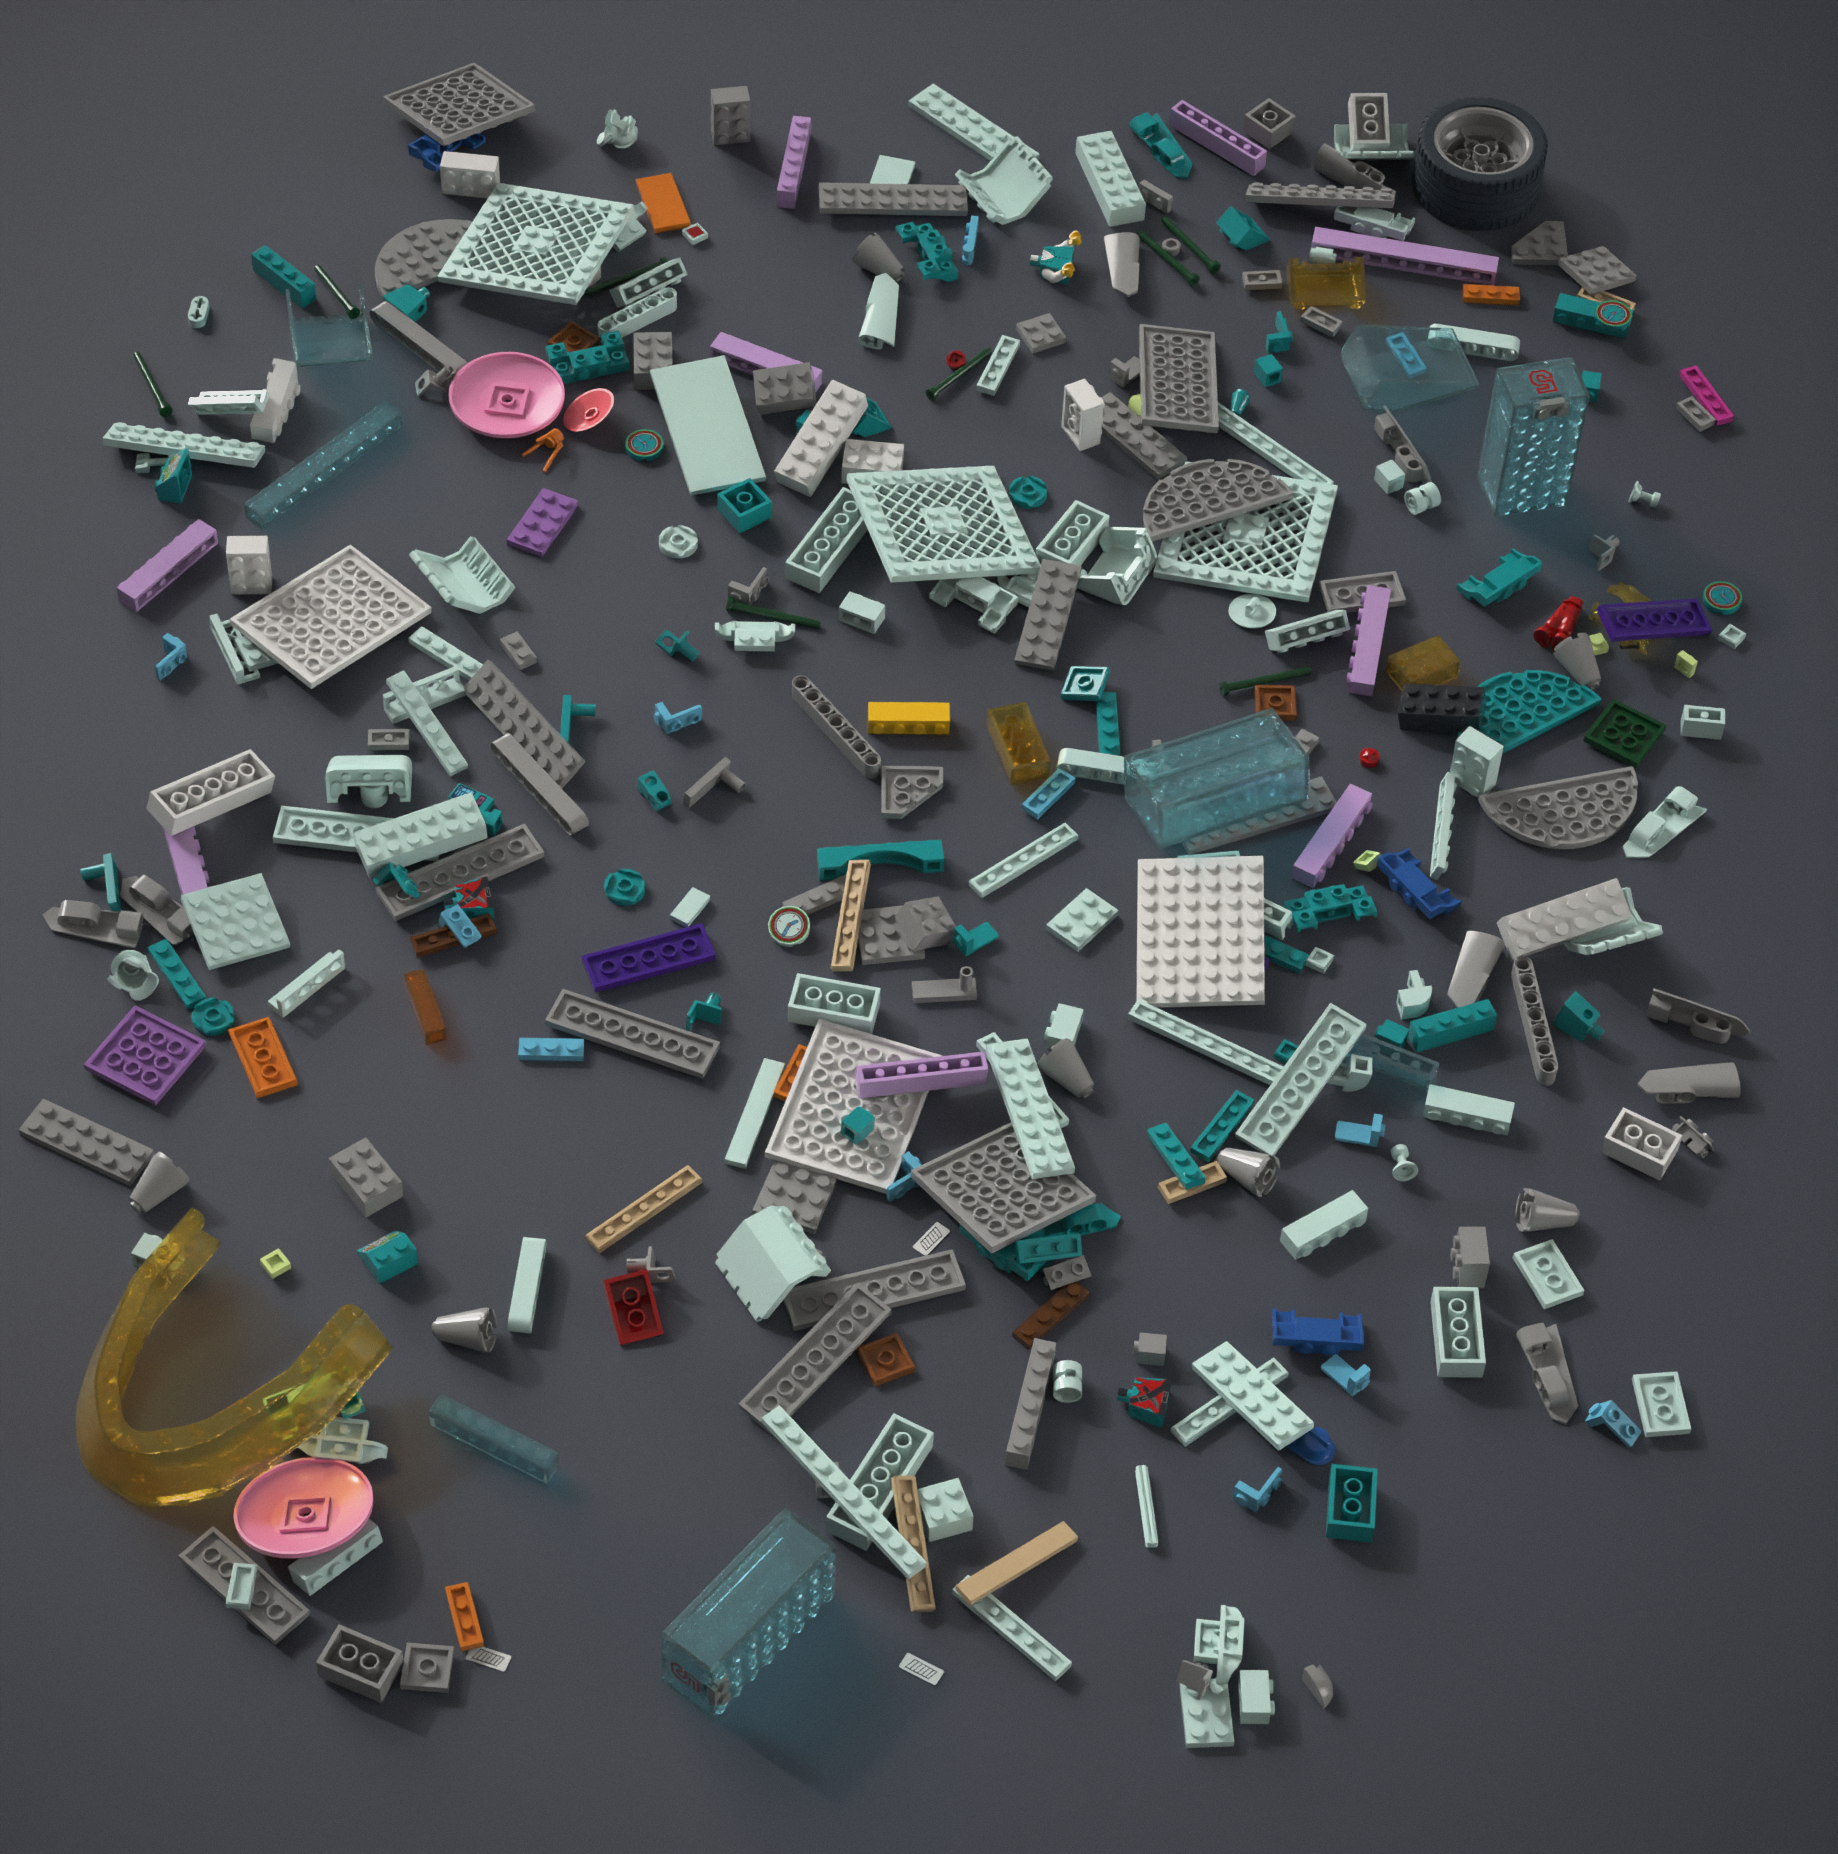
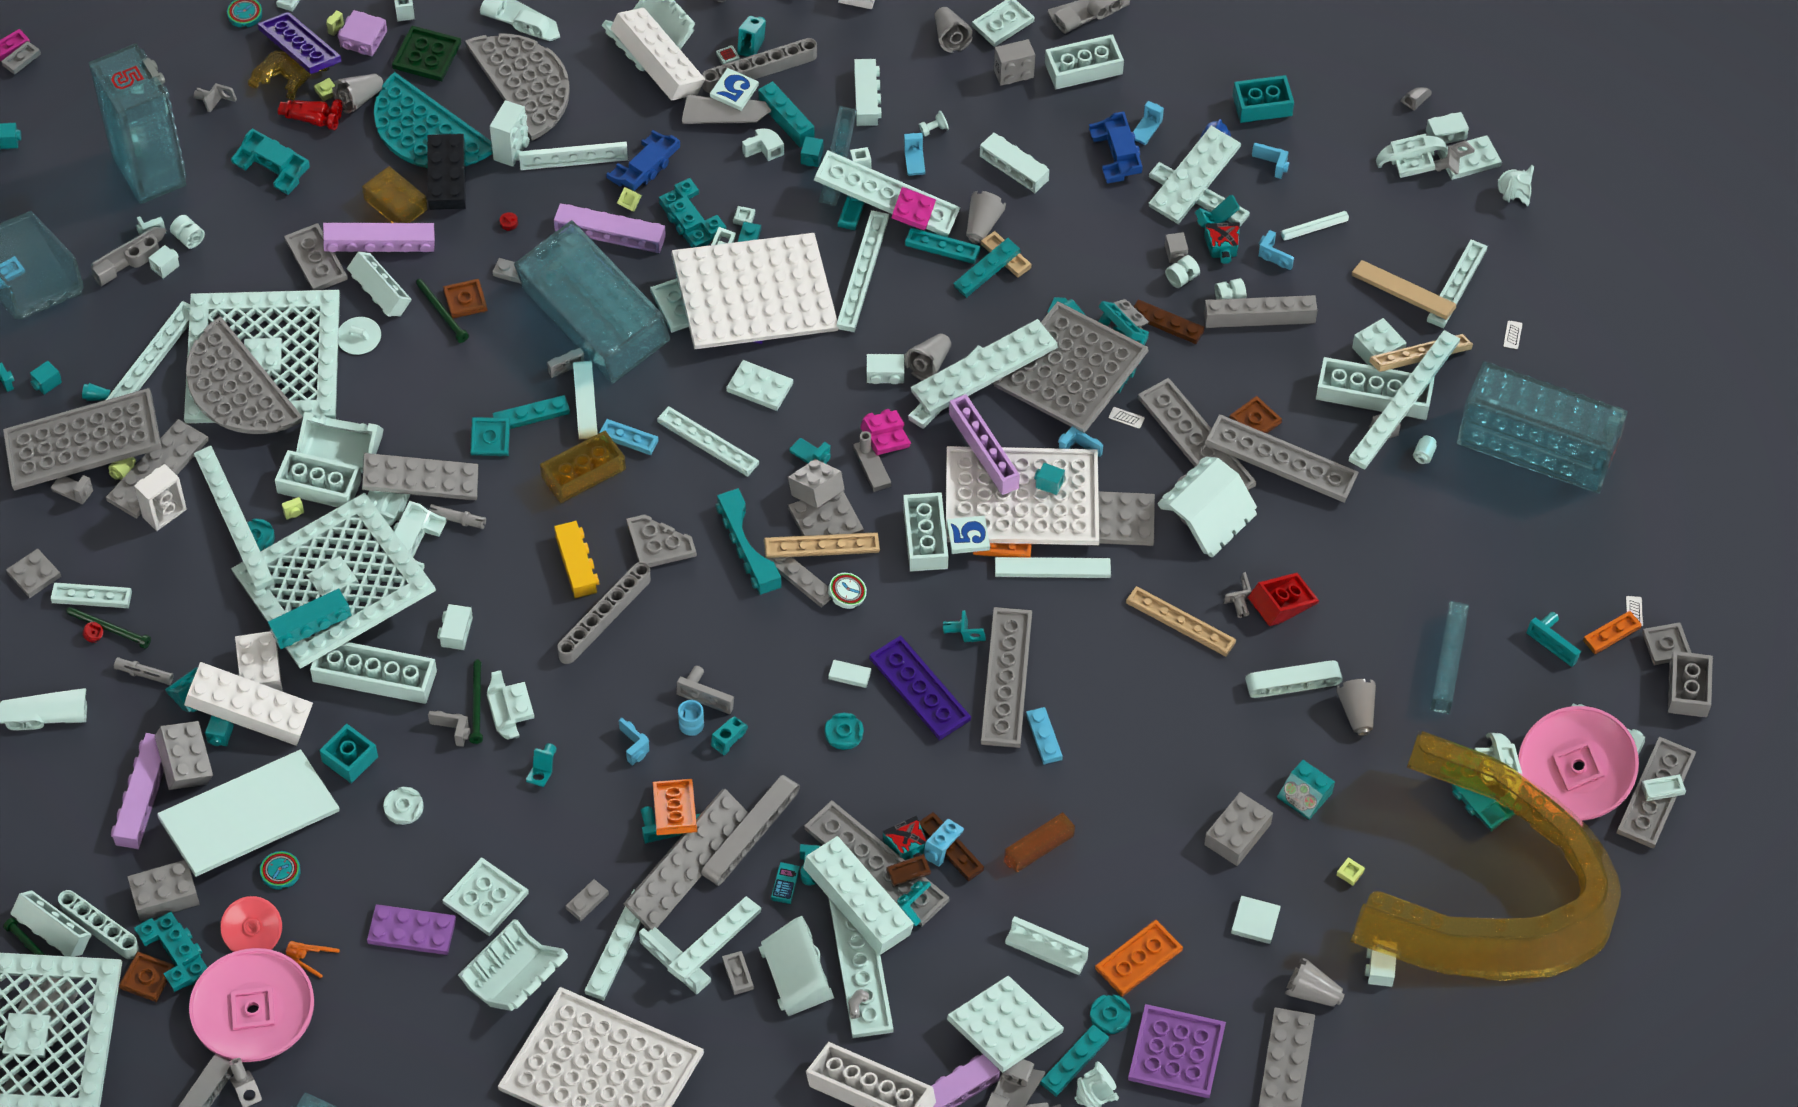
camera: 105 degrees left, 5 degrees up
(260, 1167) = (1255, 919): none -> light aqua tile
(310, 810) = (854, 1002): none -> light grey arm
(435, 887) = (908, 870): none -> reddish brown tile
(492, 1541) = (1542, 633): none -> teal piece
(552, 577) = (485, 896): none -> light aqua plate
(583, 724) = (674, 807): none -> orange tile
(683, 763) = (691, 717): none -> medium azure wheel
(775, 1504) = (1425, 449): none -> light aqua brick
(812, 1035) = (968, 534): none -> light aqua tile
(889, 483) = (309, 618): none -> teal brick
(903, 382) = (164, 677): none -> light grey pin
(978, 1006) = (885, 431): none -> dark pink plate
(991, 645) = (464, 518): none -> light grey pin
(1047, 519) = (293, 508): none -> yellowish green plate
(1048, 471) = (234, 518): none -> light aqua plate
(1112, 1342) = (1182, 271): none -> light aqua wheel
(1122, 1438) = (1271, 254): none -> medium azure bracket
(1141, 1737) = (1516, 185): none -> light aqua helmet
(1185, 1396) = (1219, 214): none -> teal bracket
(1271, 1098) = (913, 208): none -> dark pink plate
(1437, 471) = (143, 227): none -> light aqua bracket
(1494, 977) = (734, 89): none -> light aqua tile
(1557, 997) = (727, 55): none -> tile
(1663, 681) = (362, 33): none -> lavender brick

